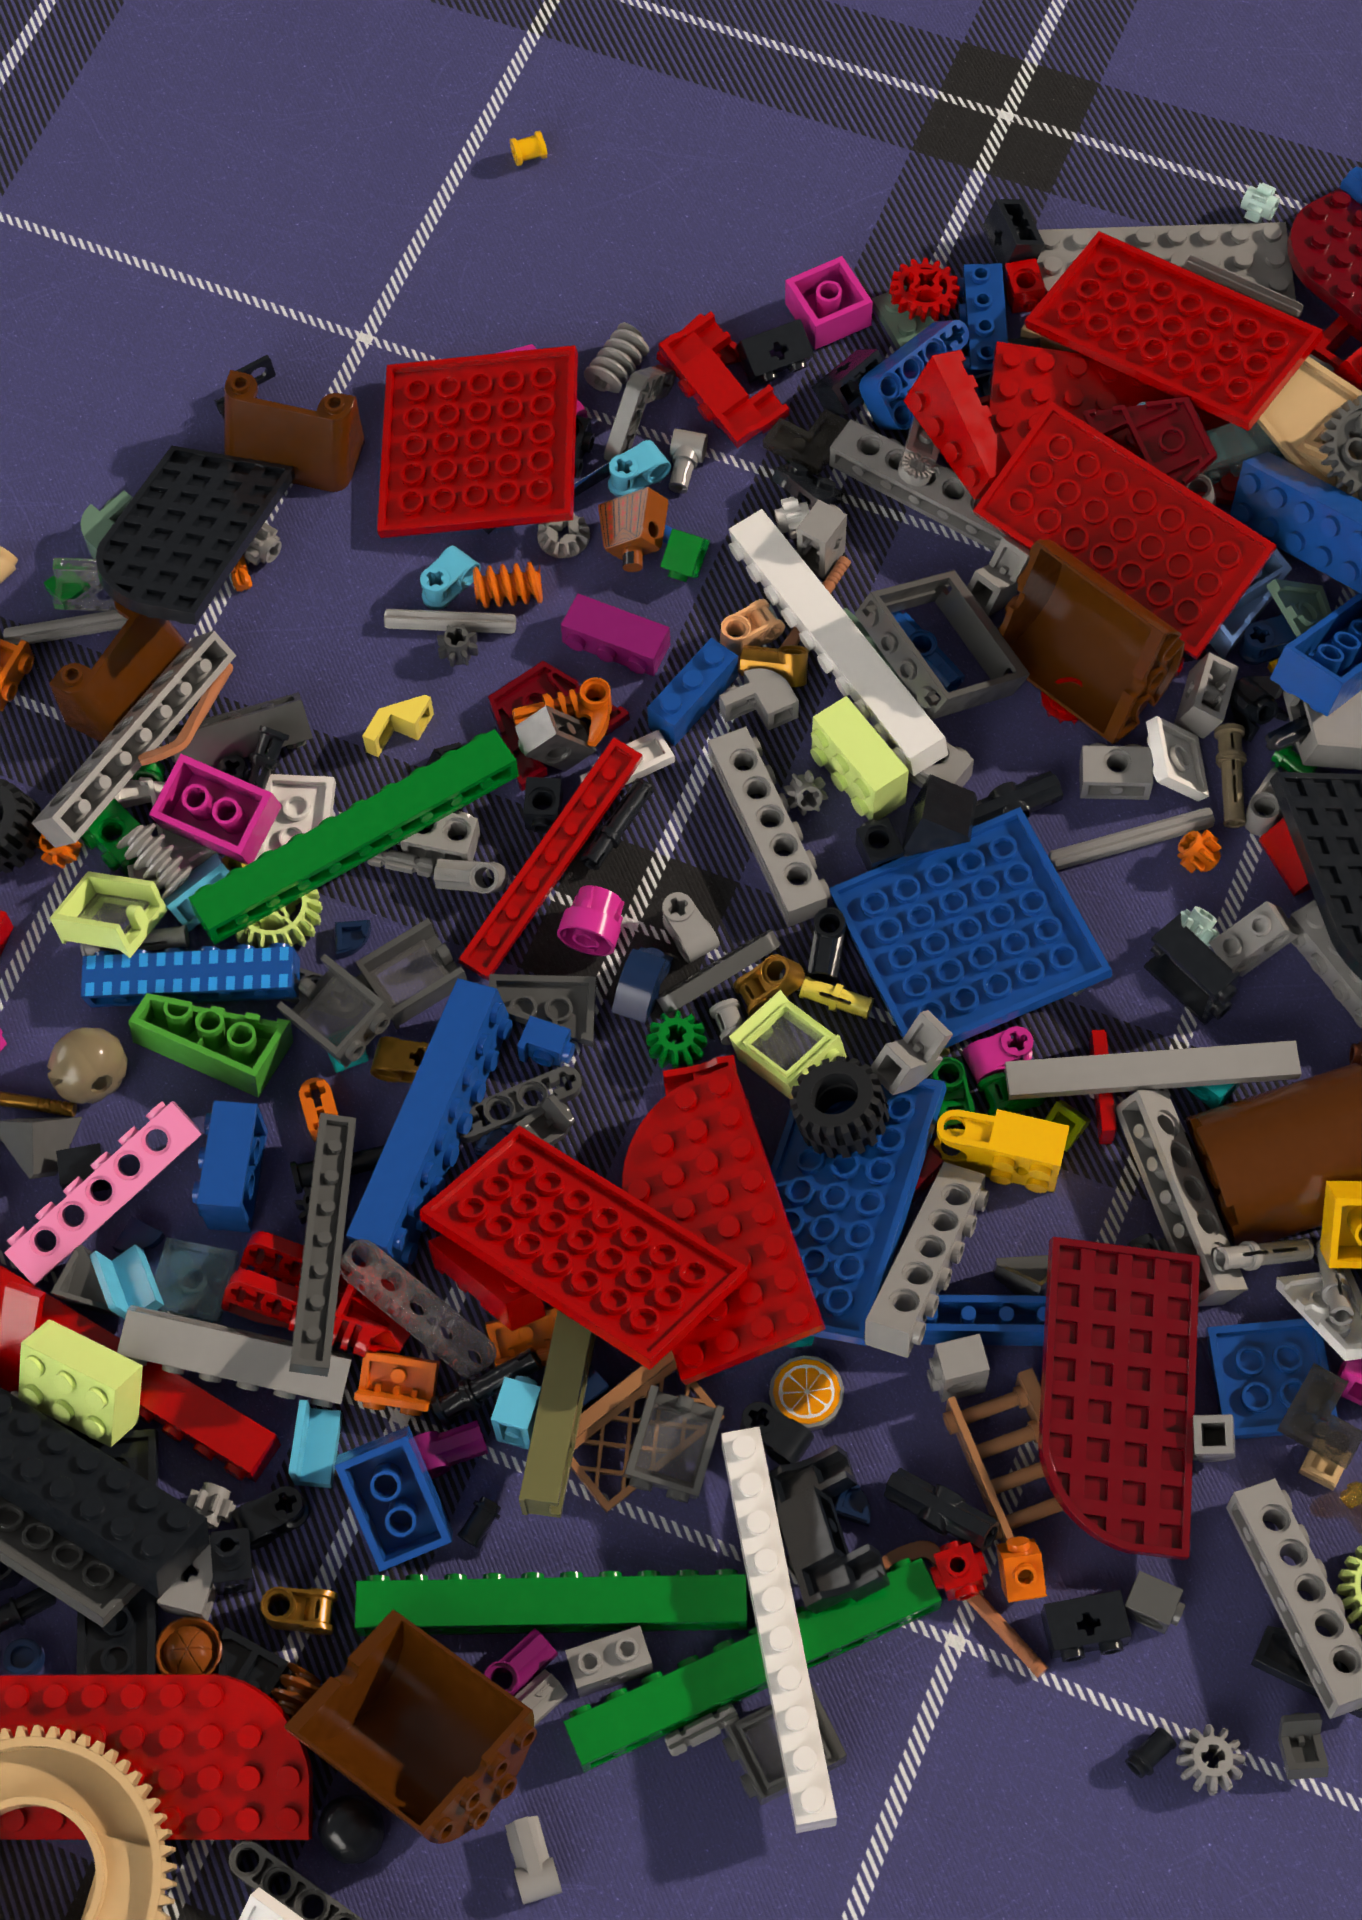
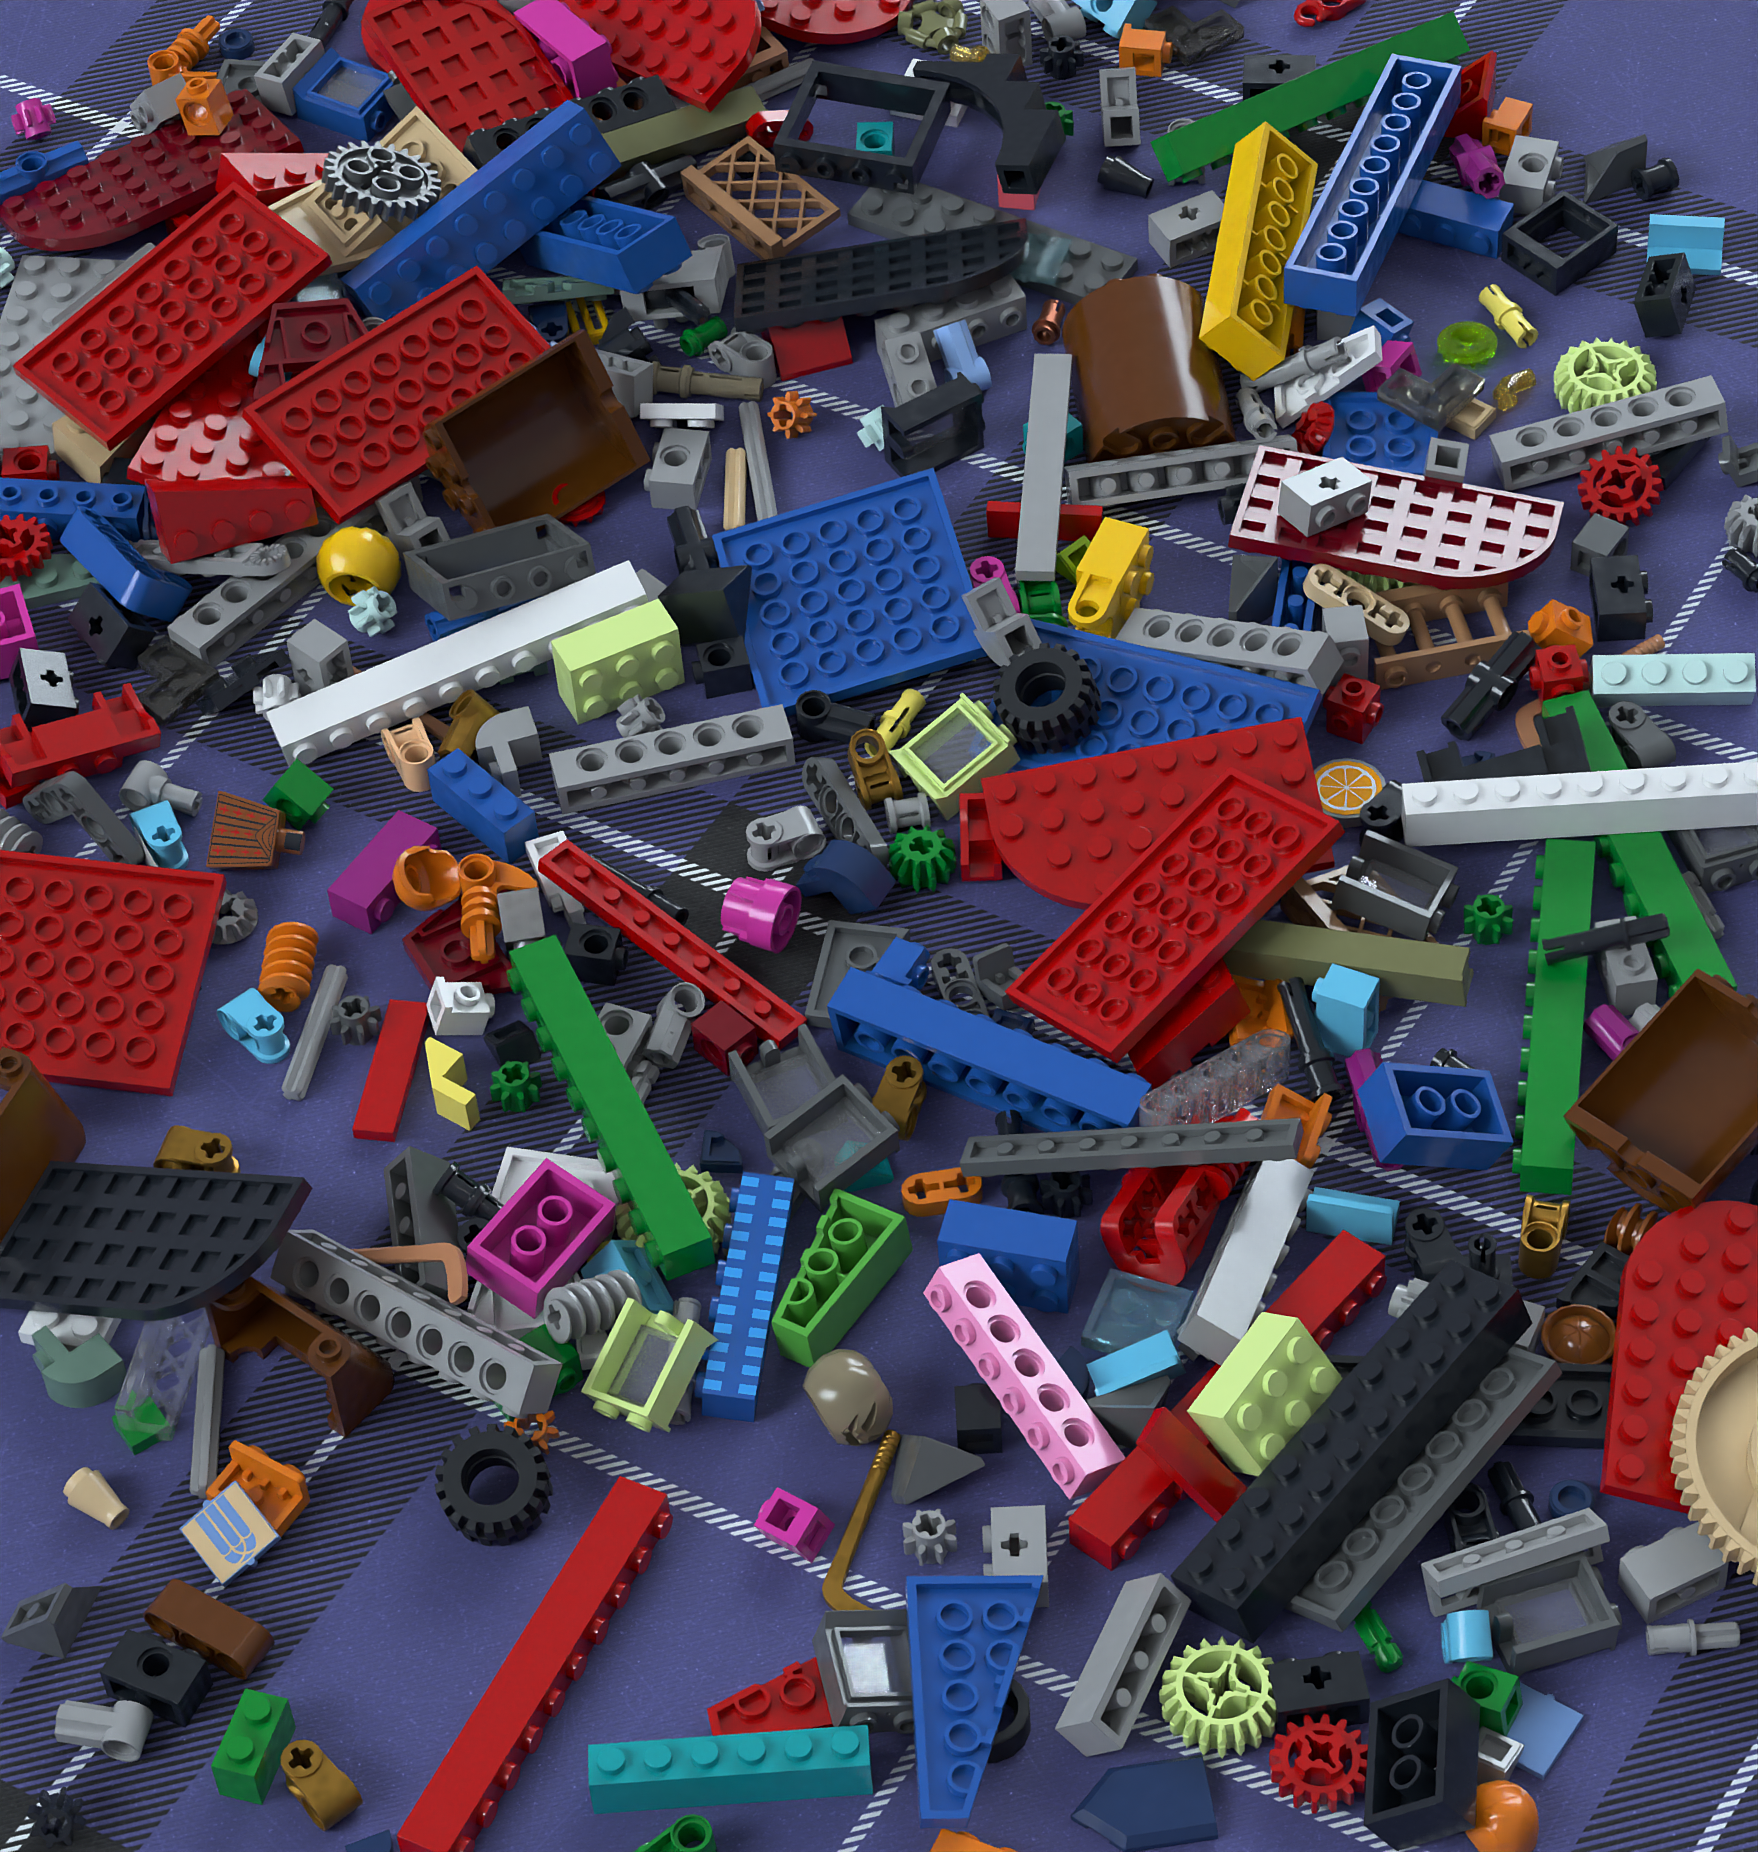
camera: 80 degrees left, 15 degrees down
(313, 566) = (196, 1150): none -> pearl gold piece
(396, 768) = (515, 1086): none -> green gear
(408, 682) = (391, 1071): none -> red tile
(460, 918) = (721, 1032): none -> dark red brick
(468, 702) = (459, 1007): none -> white brick
(590, 656) = (426, 878): none -> orange hair
(607, 1647) = (1607, 938): none -> black axle
(662, 1524) = (1488, 919): none -> green gear
(891, 1661) = (1639, 738): none -> dark grey piece
(895, 560) = (372, 611): none -> light aqua gear
(896, 1397) = (1353, 708): none -> red brick
(946, 541) = (362, 556): none -> yellow piece
(974, 1683) = (1673, 679): none -> light aqua brick
(1012, 1339) = (1337, 581): none -> tan beam
(1100, 823) = (735, 488): none -> tan axle
(1133, 1324) = (1324, 496): none -> light grey brick
(1219, 1625) = (1626, 471): none -> red gear
(1261, 1311) = (1314, 428): none -> red gear
(1285, 988) = (961, 356): none -> light blue piece

